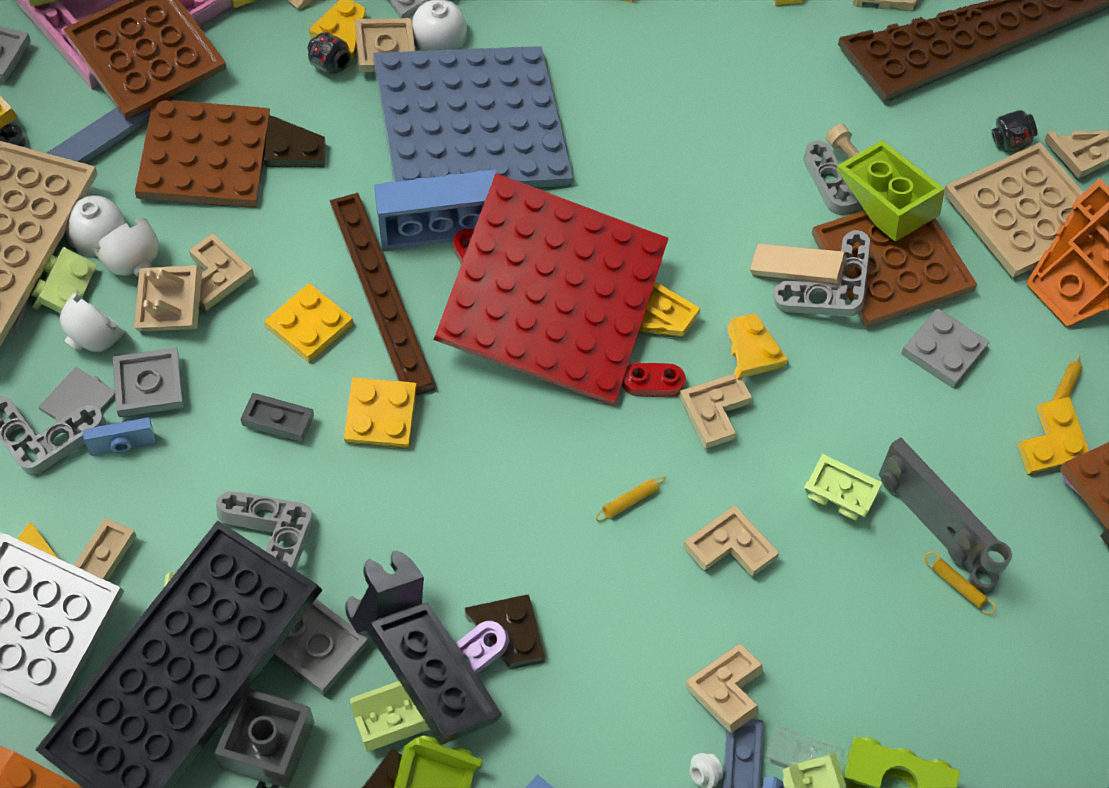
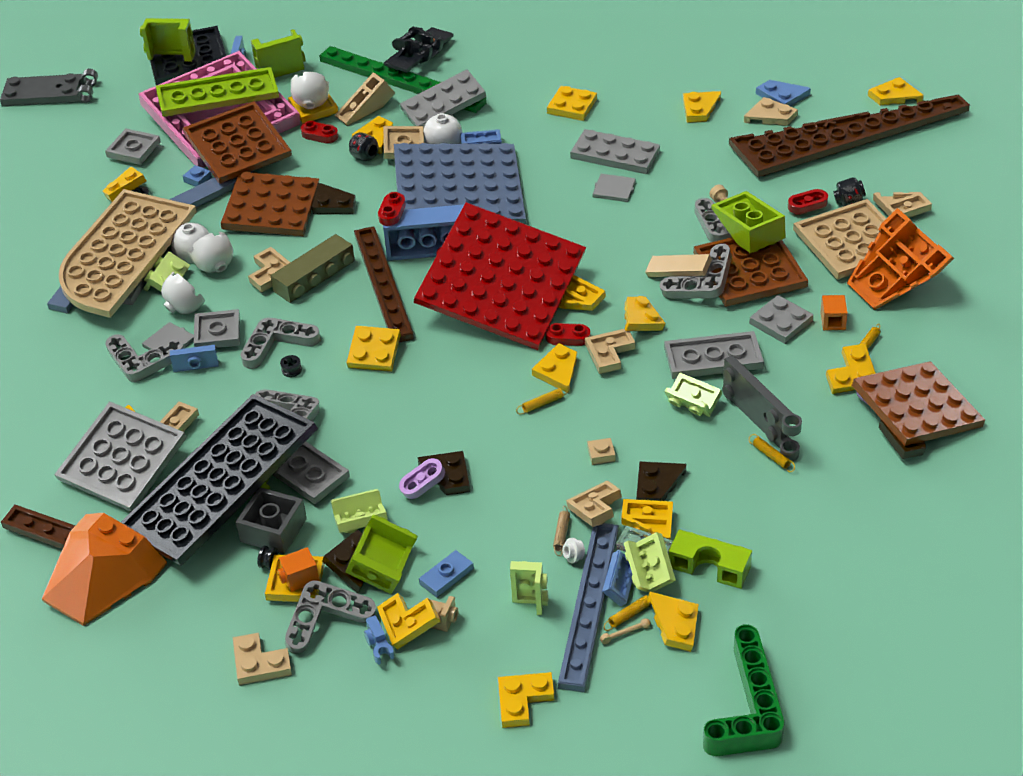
camera: 10 degrees right, 15 degrees down
(90, 103) = (197, 176): none -> medium blue plate
(168, 298) = (235, 280): tan plate -> none
(231, 386) = (303, 335): none -> light grey beam
(253, 444) = (294, 362): none -> black bush
(261, 23) = (319, 132): none -> red plate
(277, 270) = (312, 268): none -> olive brick
(277, 417) = (306, 350): dark grey plate -> none
(309, 322) = (331, 299): yellow plate -> none
(389, 179) = (391, 209): none -> red plate
(421, 650) = (381, 469): black hinge -> none
(494, 36) = (480, 137): none -> medium blue plate
(645, 439) = (557, 367): none -> yellow wing
(683, 57) = (615, 151): none -> light grey plate
(683, 731) = (561, 530): none -> tan piece
(688, 119) = (614, 187): none -> light grey piece
(723, 586) = (601, 451): none -> tan plate
(734, 535) = (609, 420): tan plate -> none
(805, 706) = (648, 516): none -> yellow wing
(806, 637) = (658, 479): none -> dark brown wing
(860, 414) = (707, 354): none -> light grey plate
(955, 145) = (807, 201): none -> red plate
(1017, 338) = (833, 312): none -> orange brick

